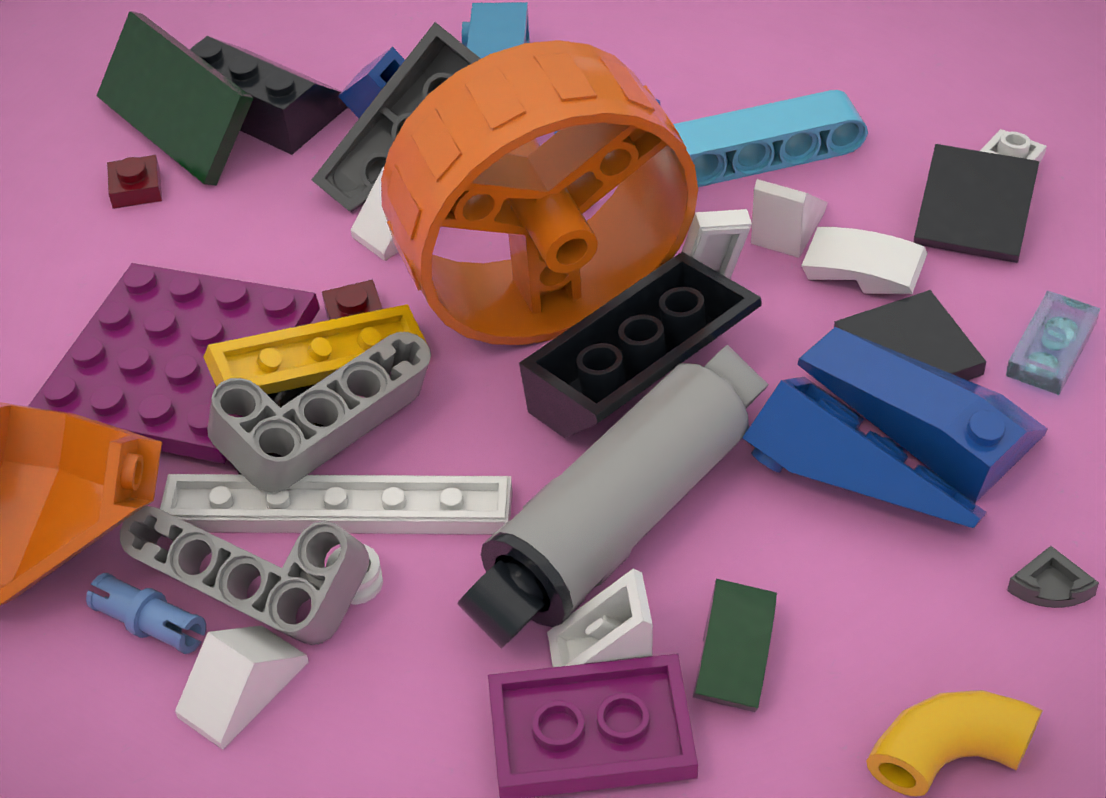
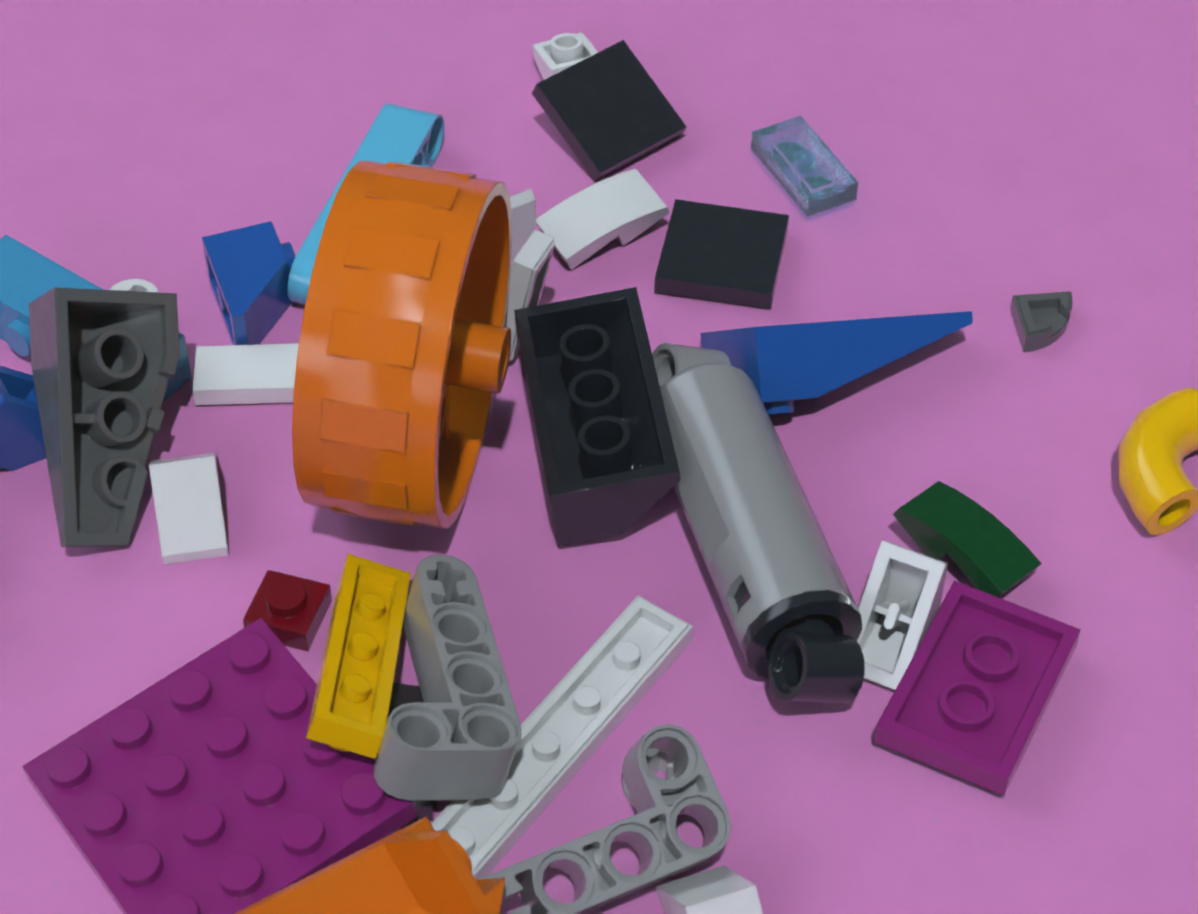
camera: 60 degrees left, 0 degrees up
(939, 418) = (817, 279): blue wedge -> none

